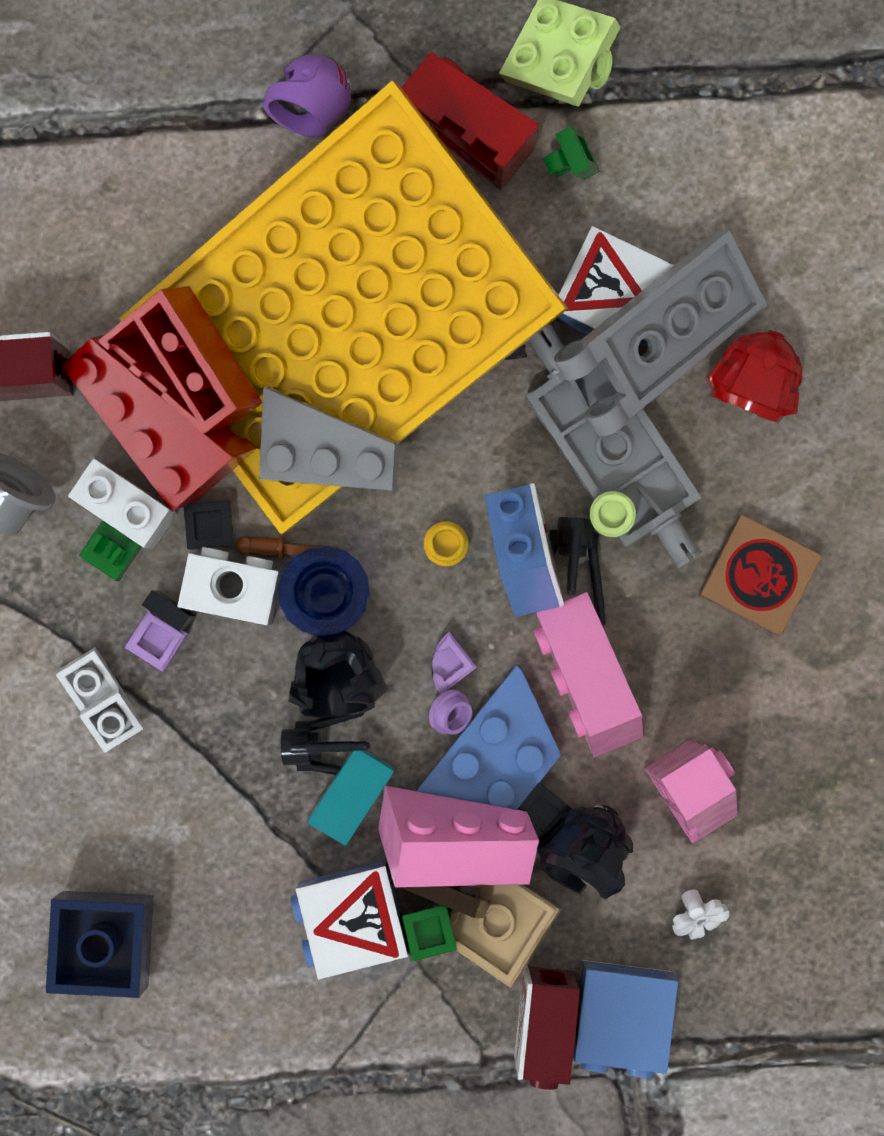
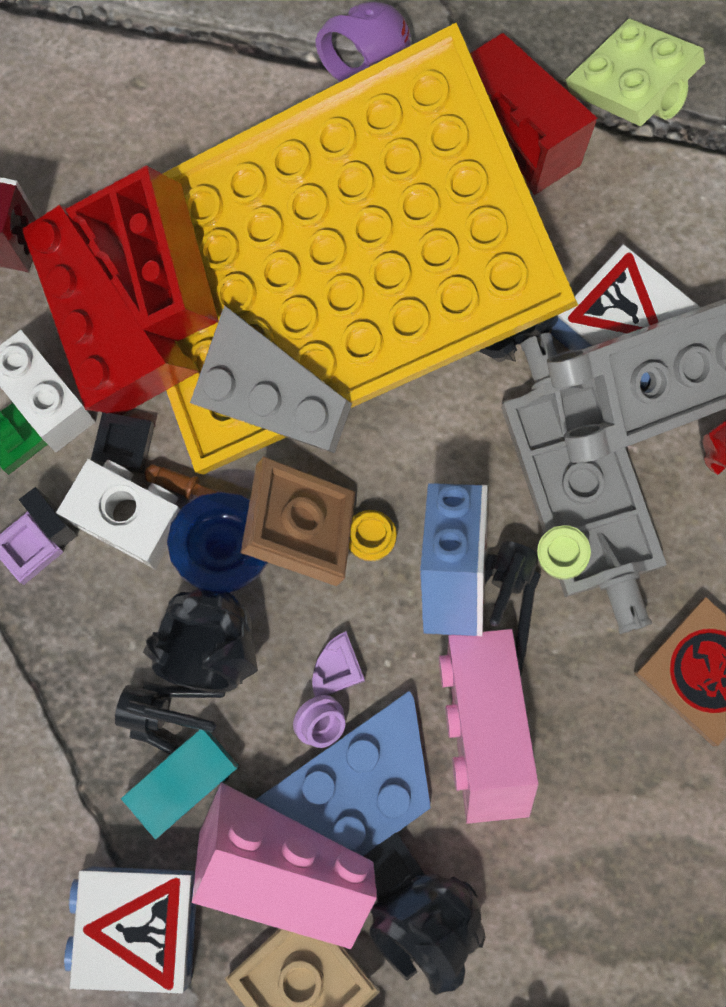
camera: 15 degrees right, 10 degrees down
(383, 553) = (299, 522): none -> medium nougat tile
(428, 932) = (216, 972): green tile -> none
(459, 898) = (264, 940): dark brown plate -> none
(572, 156) = (618, 177): green tile -> none
(696, 787) = (579, 893): bright pink wedge -> none

